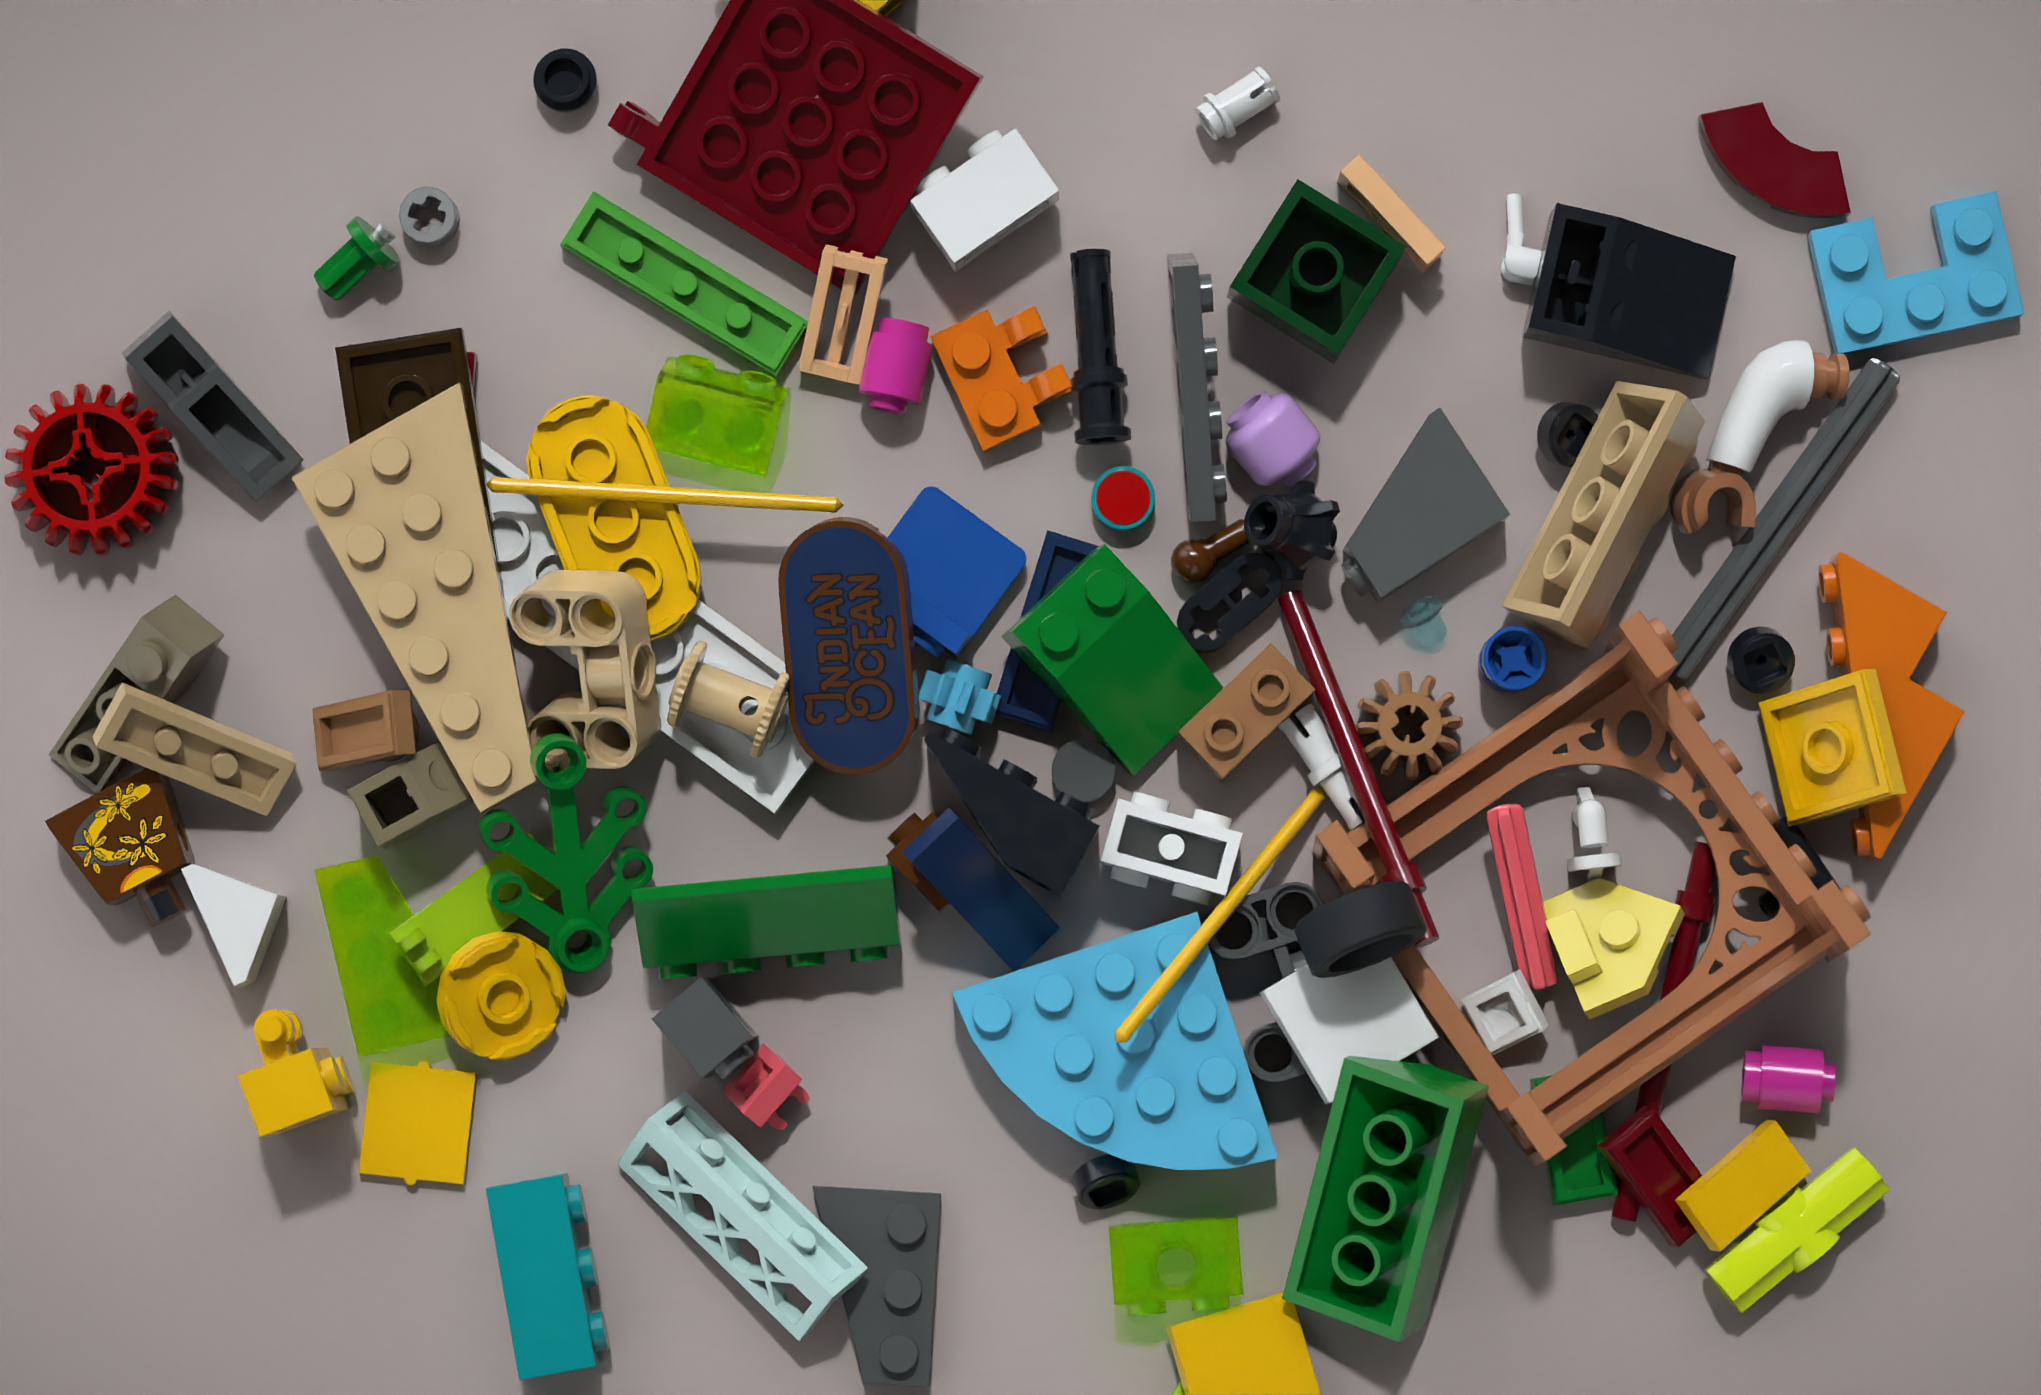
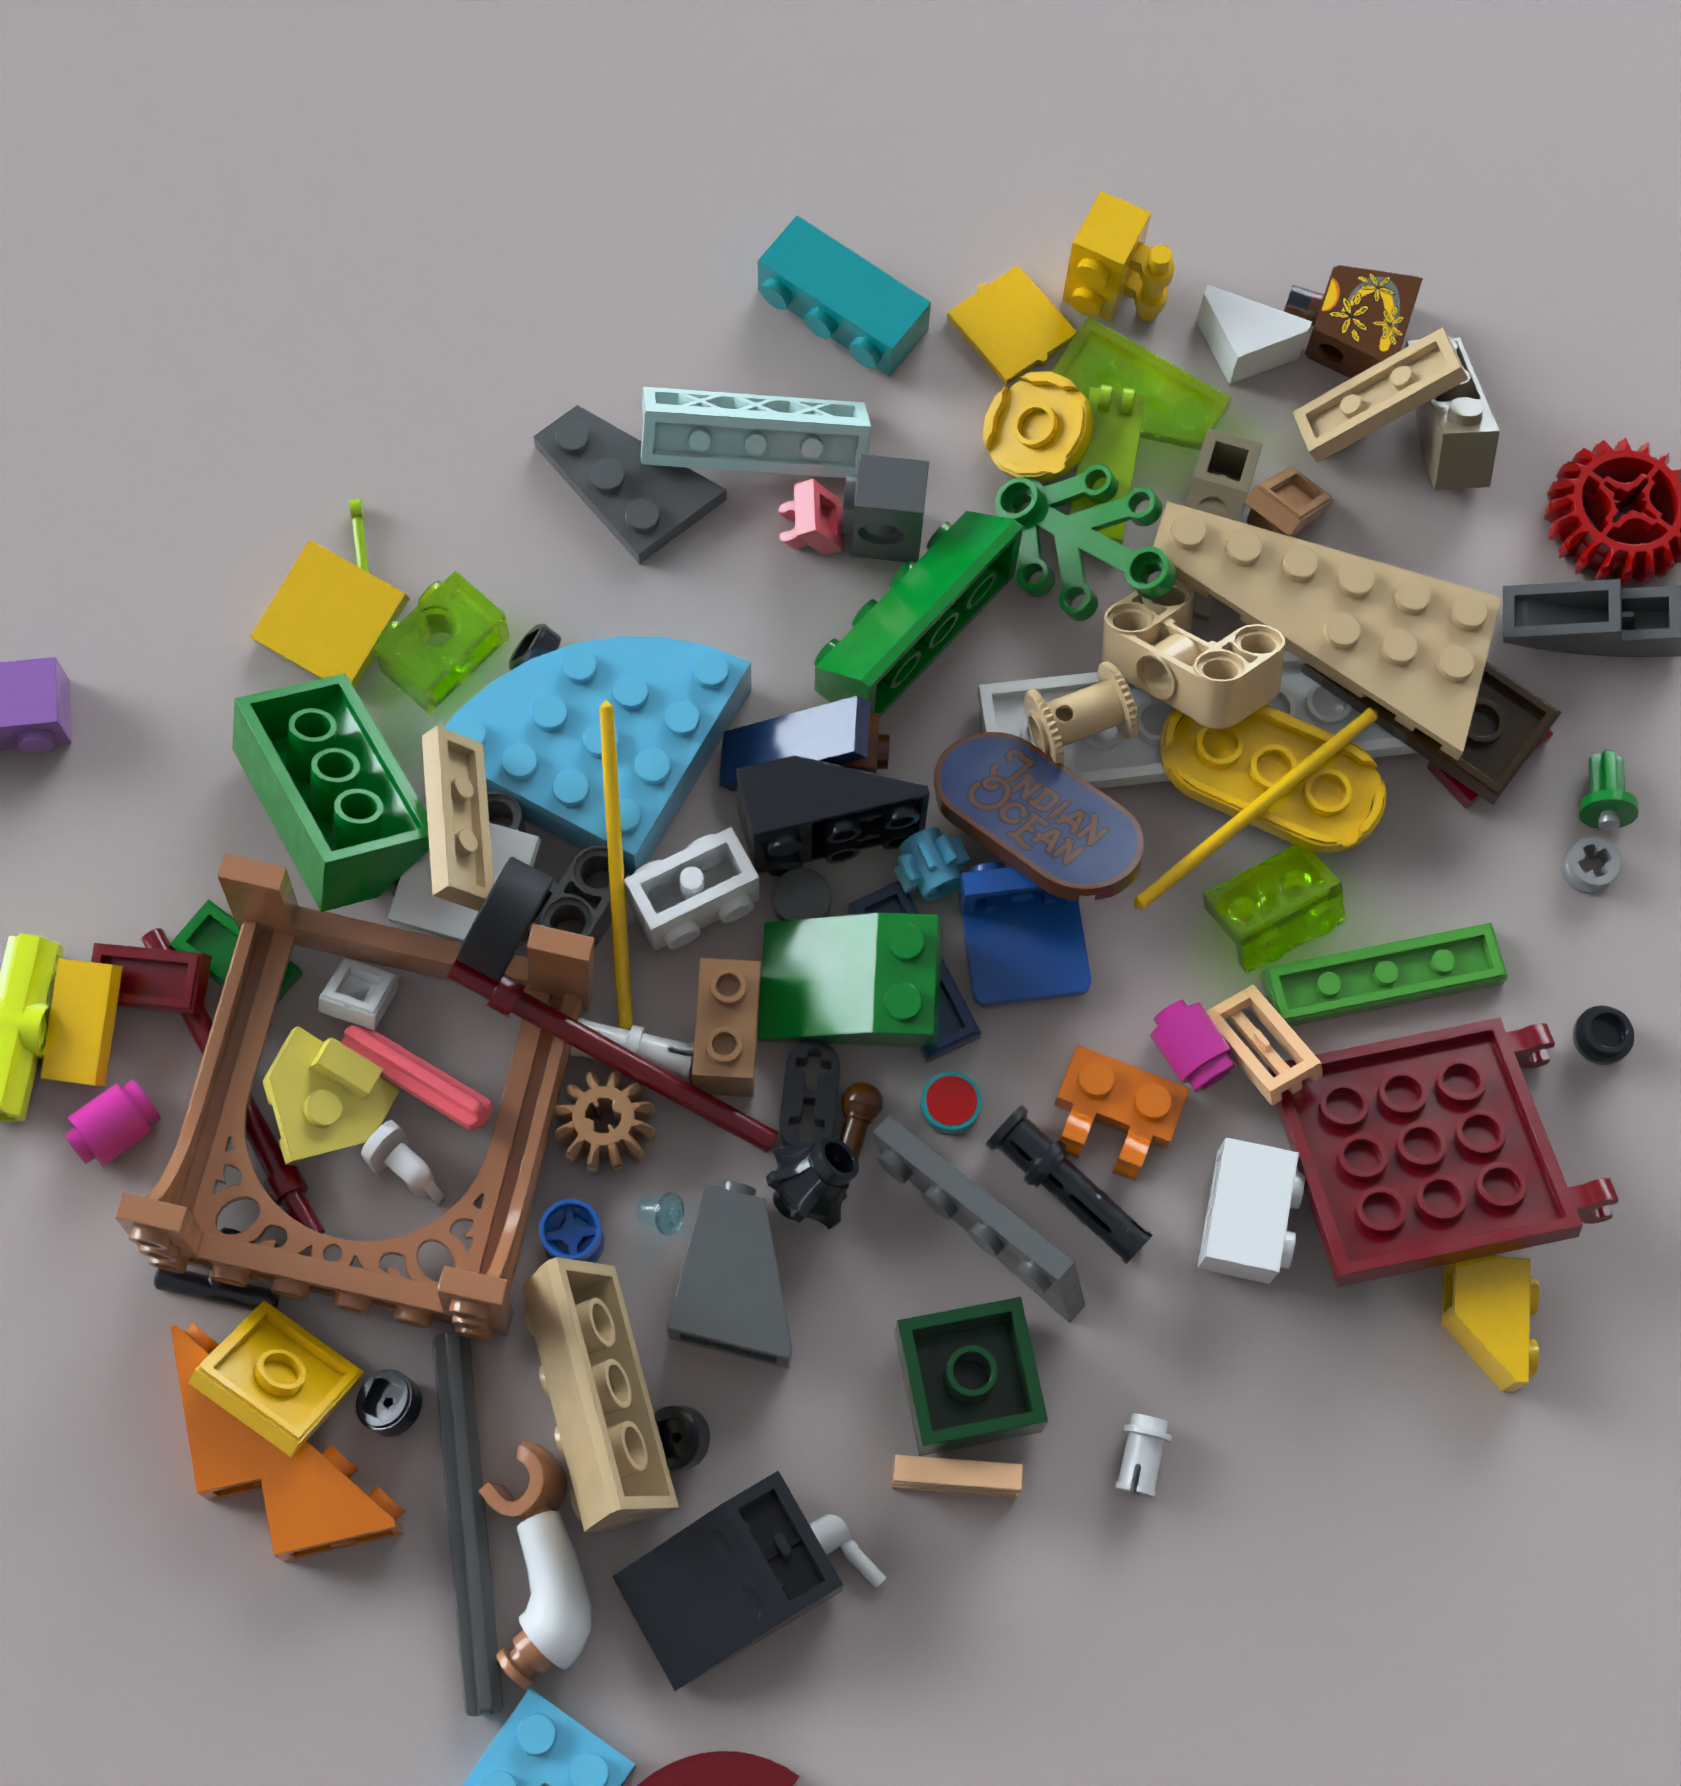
camera: 130 degrees right, 15 degrees down
(1272, 439) = (887, 1233): lavender head -> none
(1320, 1052) = (457, 818): none -> tan plate

